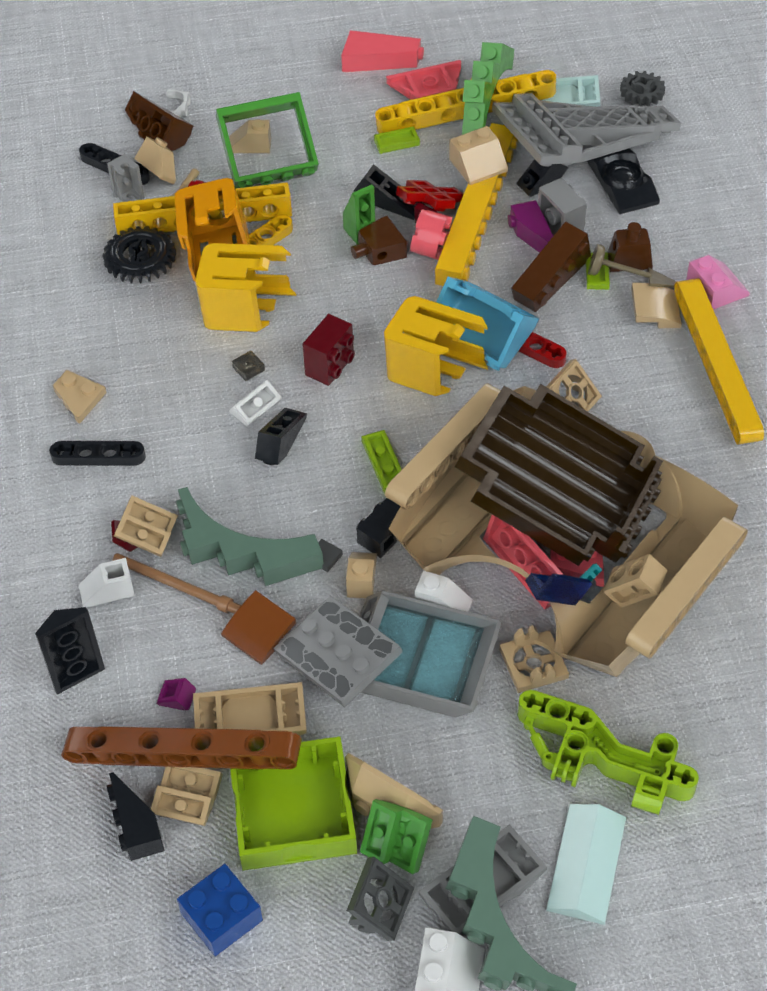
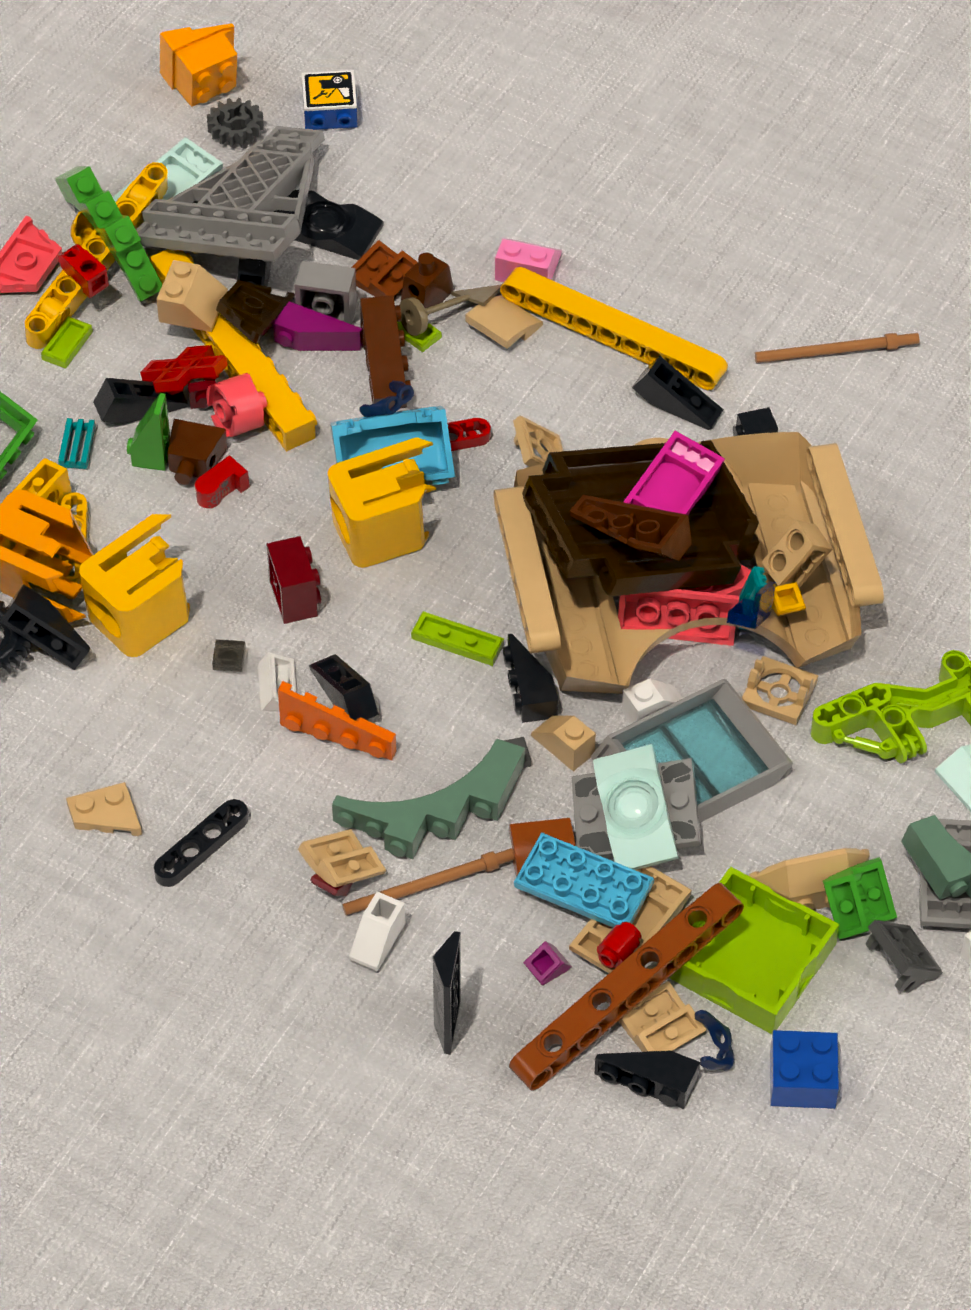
camera: 50 degrees left, 0 degrees up
(169, 265) = (44, 626): none -> black slope
(207, 838) = (716, 1029): none -> dark blue cap
(211, 717) = (619, 944): none -> red brick
(242, 446) = (333, 724): none -> orange wing
(248, 664) = (583, 882): none -> medium azure tile
(328, 646) = (635, 808): none -> light aqua slope
(330, 193) = (79, 427): none -> teal tile
(370, 270) = (220, 482): none -> red leg
(438, 101) = (84, 270): none -> red leg
(496, 291) = (382, 406): none -> dark blue cap
(506, 187) = (252, 308): none -> dark brown wing
(530, 471) = (641, 527): none -> reddish brown wedge
(594, 468) = (676, 476): none -> dark pink slope
(600, 604) = (787, 599): none -> yellow slope
(616, 219) = (382, 270): none -> dark orange slope
(660, 40) = (199, 61): none -> light orange piece
(706, 428) = (675, 394): none -> black slope
(713, 112) = (329, 99): none -> piece
(733, 486) = (755, 422): none -> black brick

